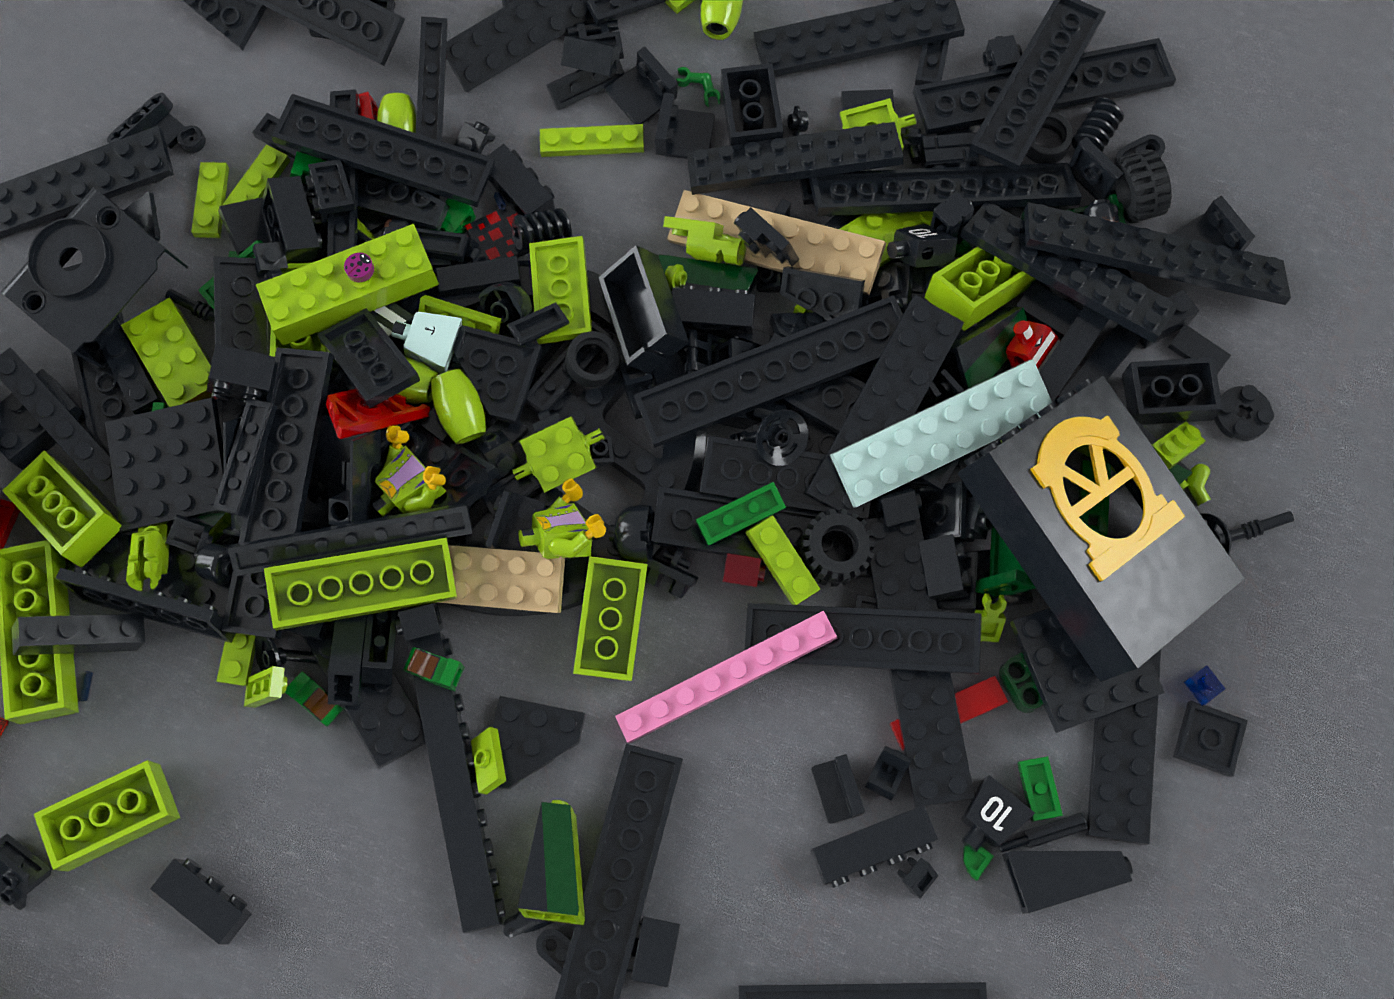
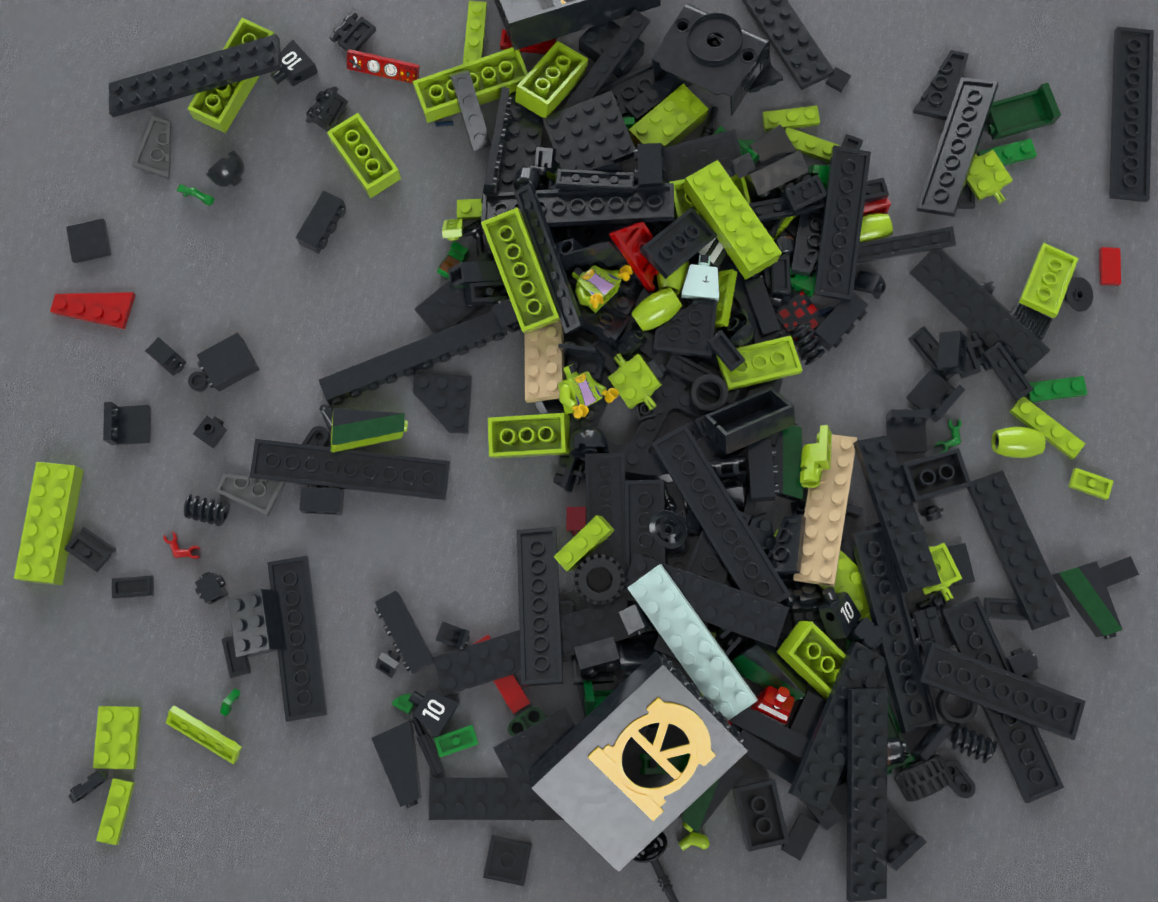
camera: 80 degrees right, 5 degrees up
(143, 118) = (841, 59): black beam -> none
(148, 556) = (525, 138): lime plate -> none
(191, 139) = (833, 95): black tile -> none
(359, 267) = (739, 222): magenta tile -> none
(434, 668) = (478, 329): leg -> none
(488, 760) = (426, 375): lime plate -> none
(591, 140) = (888, 367): lime plate -> none
(676, 276) = (782, 440): lime plate -> none
(726, 677) = (502, 520): bright pink plate -> none
(740, 513) = (612, 510): green plate -> none
(763, 238) = (821, 494): black plate -> none
(838, 789) = (439, 604): black panel -> none
(992, 618) = (566, 694): lime plate -> none
(1178, 444) = (715, 818): lime plate -> none
(1204, 685) = (543, 853): clear blue plate -> none
(1255, 403) = (767, 875): black plate -> none

